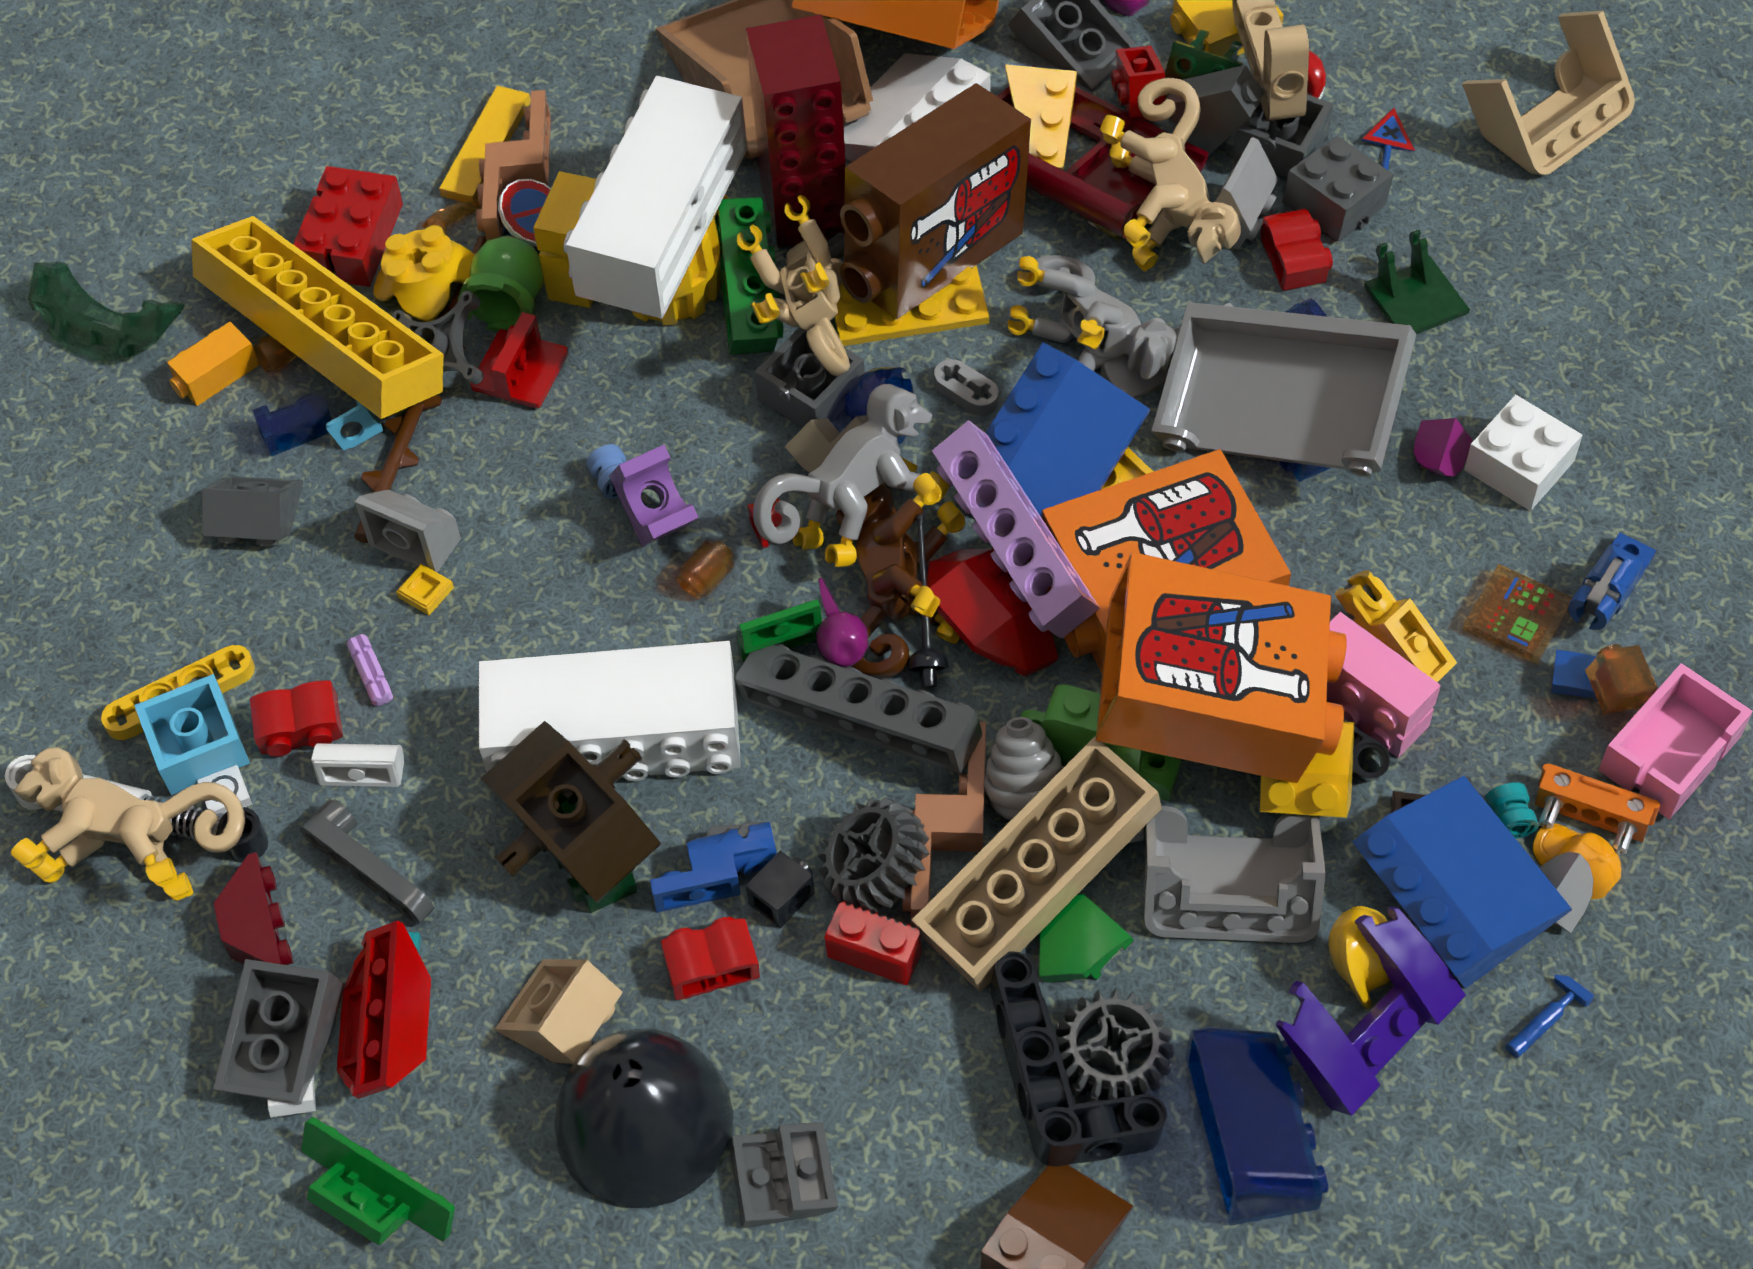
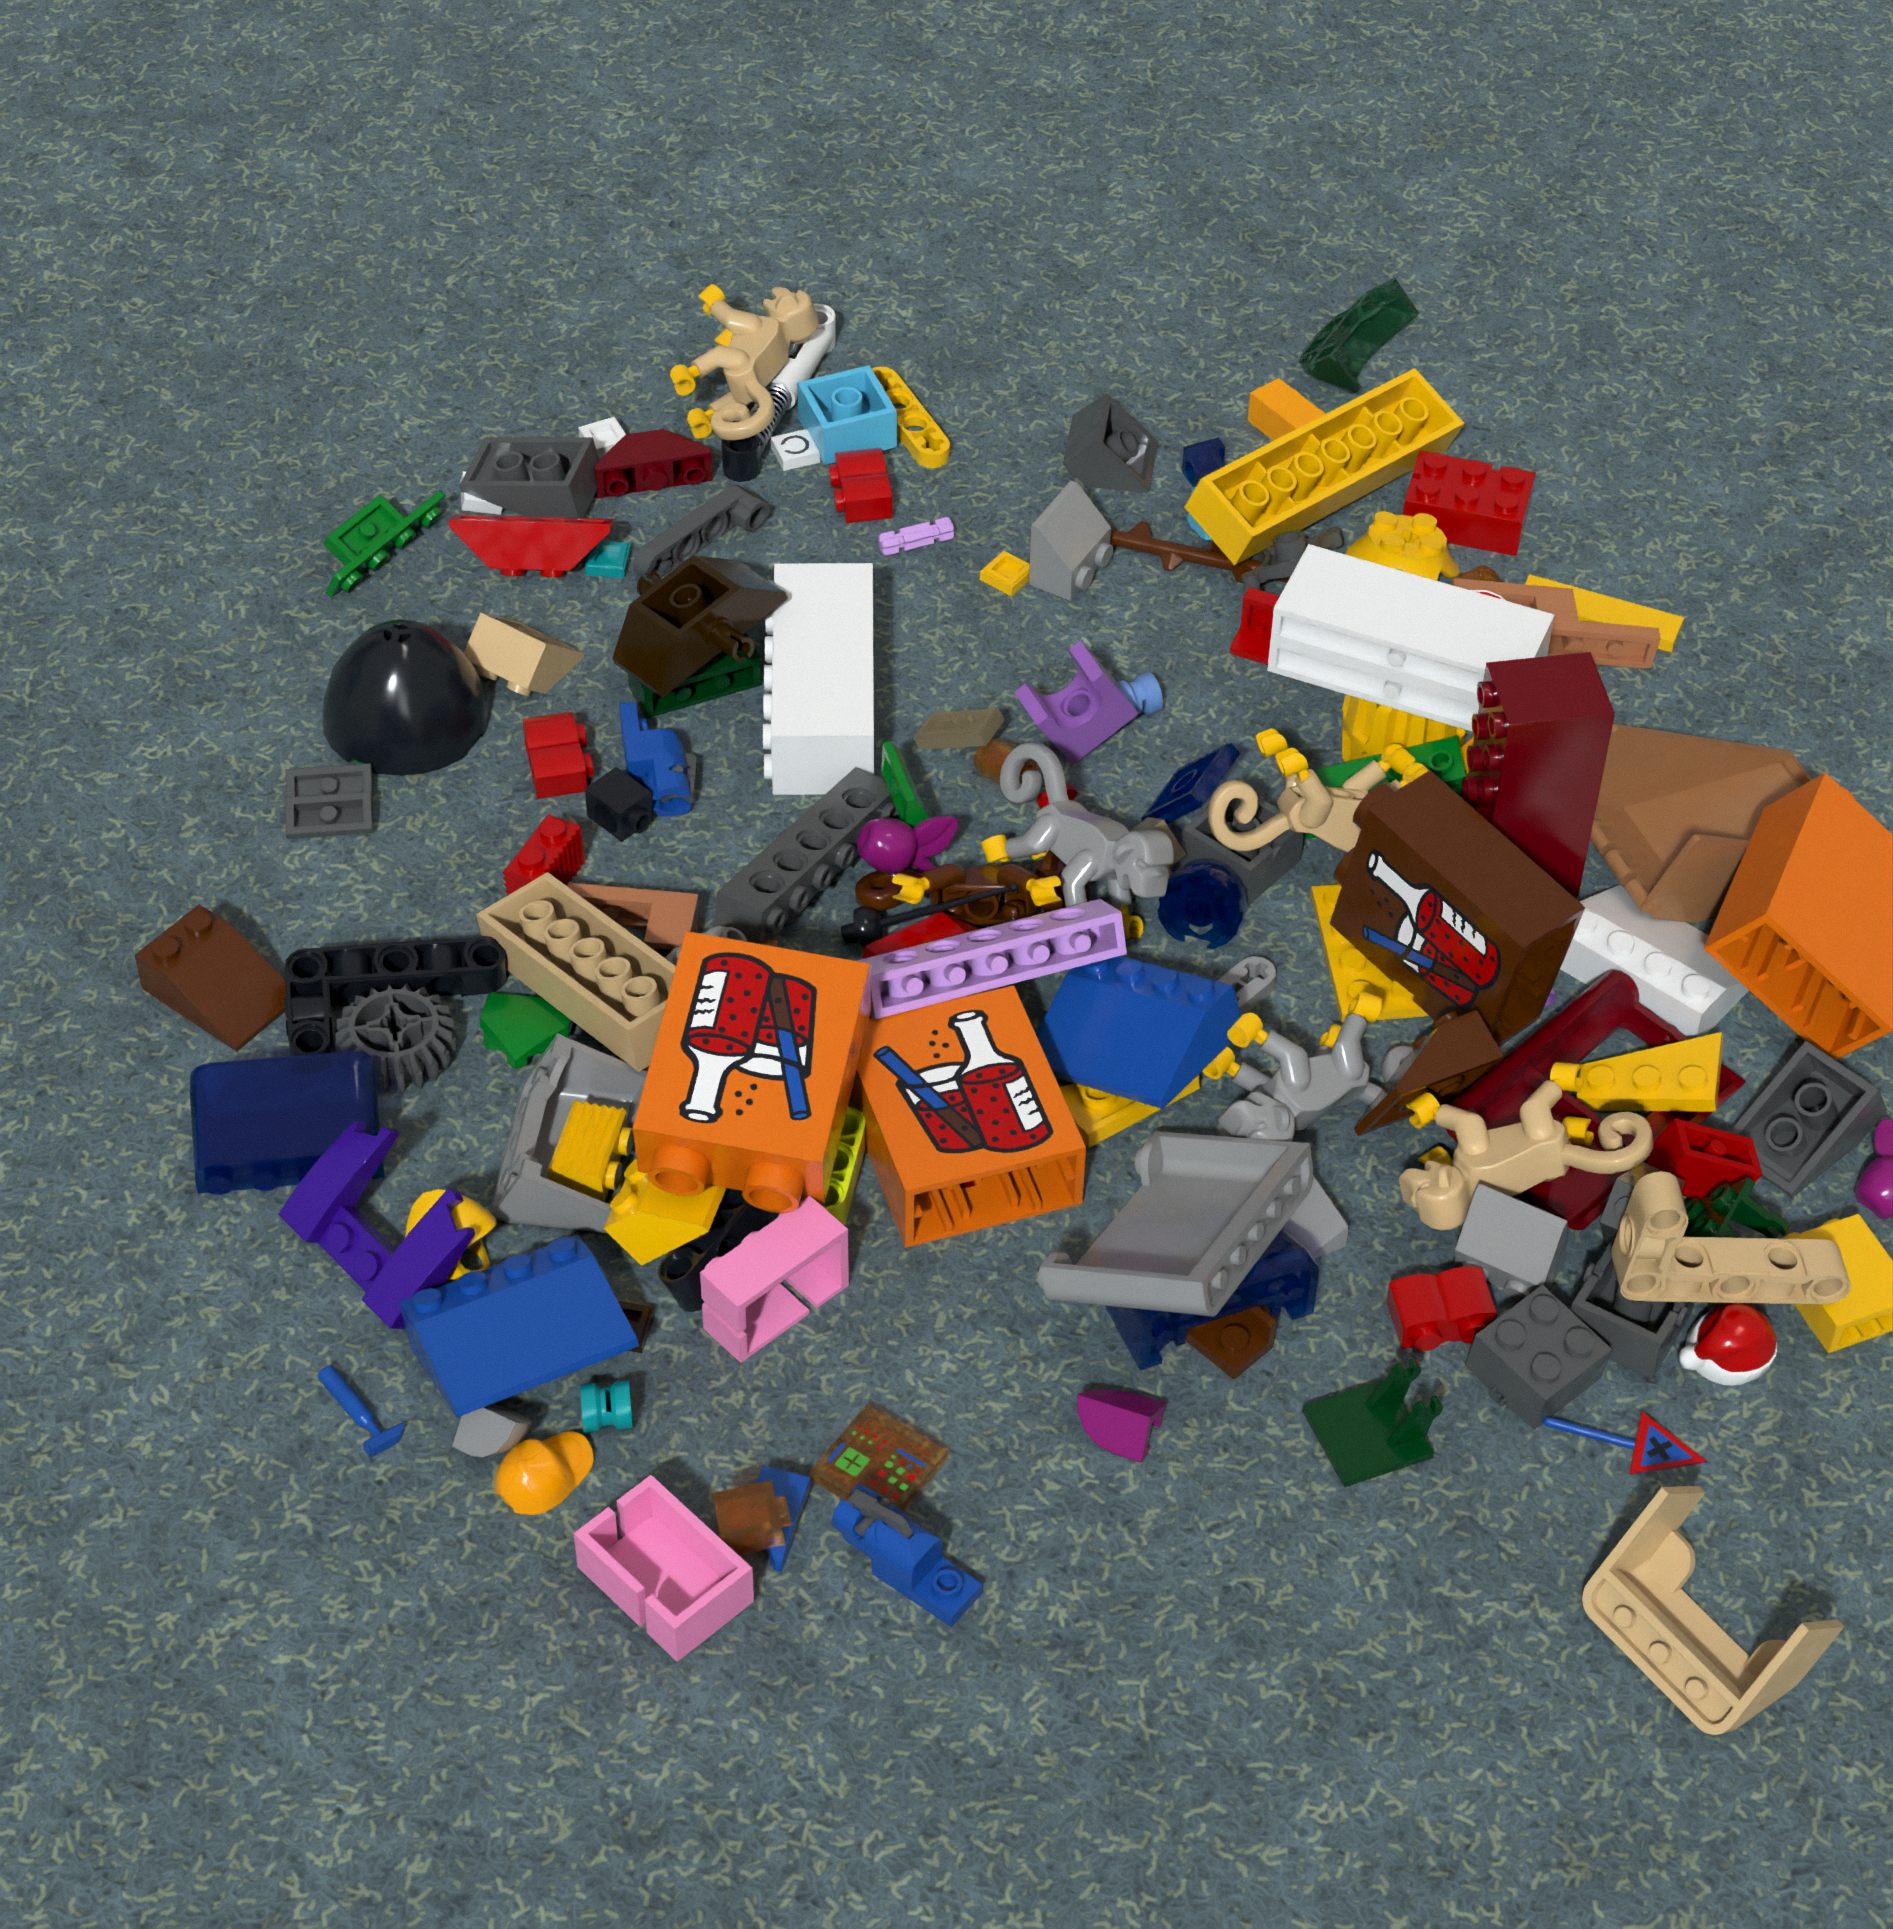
camera: 90 degrees right, 10 degrees down
(202, 977) = (605, 434): none -> white plate
(358, 764) = (809, 525): white brick -> none
(664, 605) = (959, 729): none -> dark tan plate
(743, 417) = (1192, 784): none -> clear blue tile
(880, 829) = (632, 858): dark grey gear -> none
(1090, 237) = (1440, 1064): none -> reddish brown slope
(1240, 854) = (591, 1149): none -> yellow brick
(1395, 624) = (852, 1321): yellow plate -> none
(1523, 452) = (1104, 1493): white brick -> none
(1595, 804) = (612, 1476): orange piece -> none

